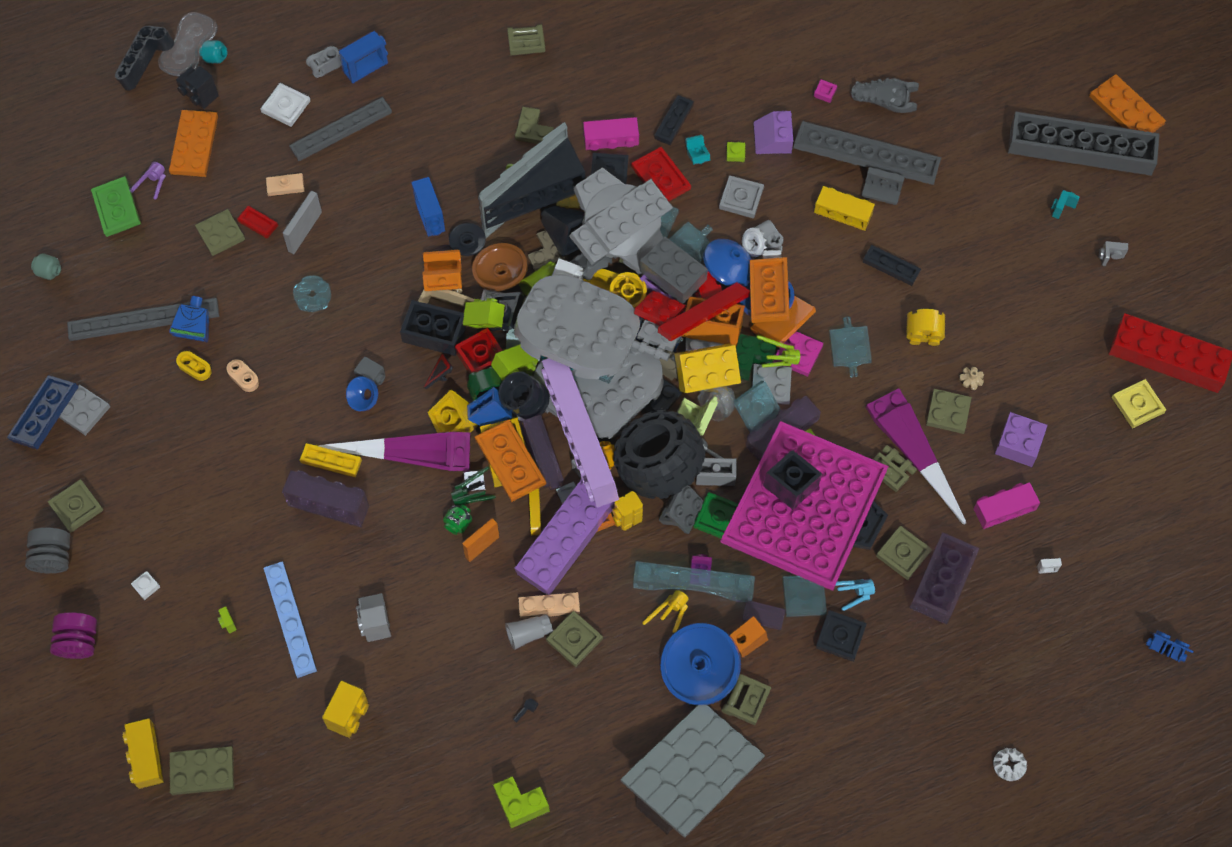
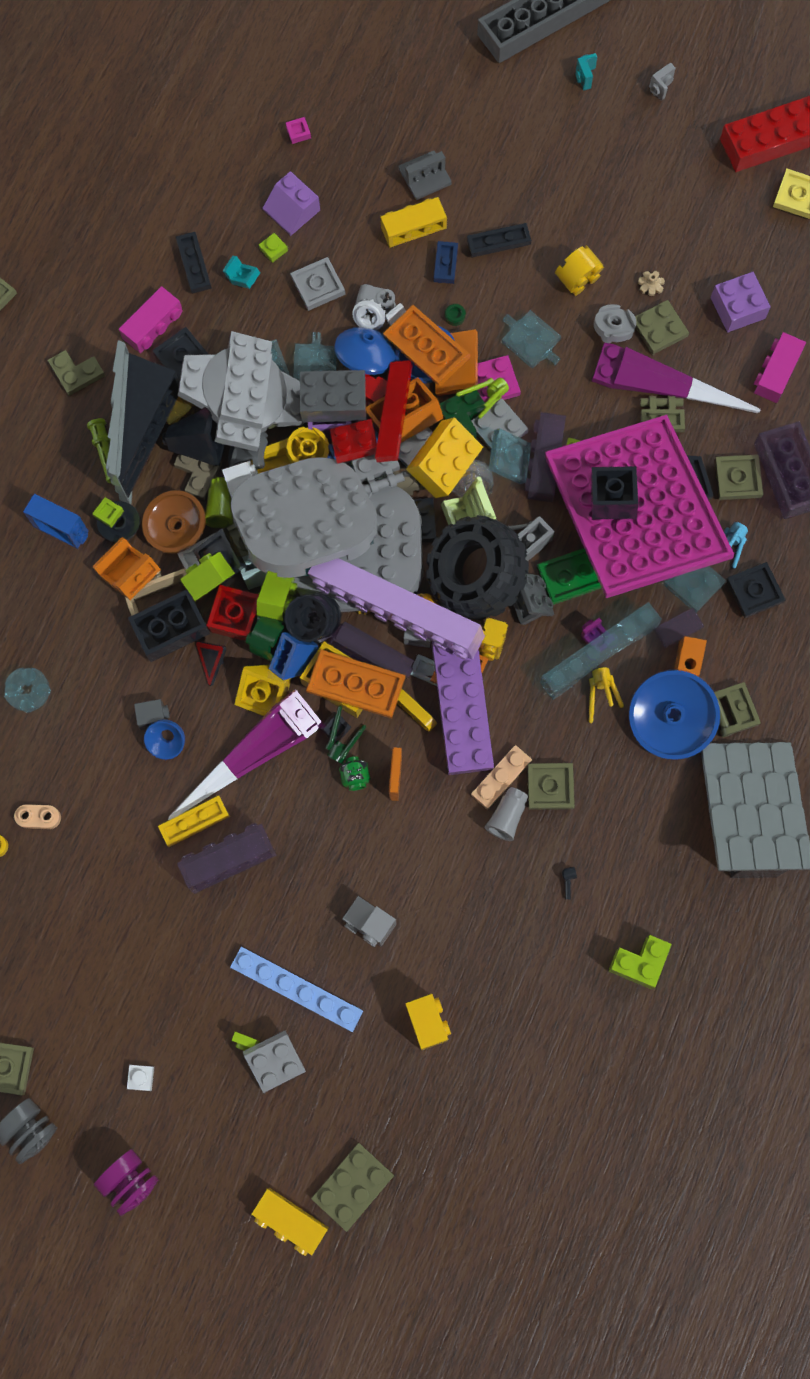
camera: 40 degrees left, 10 degrees up
(231, 647) = (274, 1061): none -> light grey plate
(465, 227) = (108, 512): none -> lime plate
(662, 172) = (223, 316): red plate -> none
(814, 289) = (455, 314): none -> dark green tile
(841, 251) = (445, 262): none -> dark blue plate
(867, 152) = (386, 157): dark grey plate -> none
(890, 94) = (353, 90): dark grey animal -> none
(910, 388) = (611, 332): none -> light grey plate

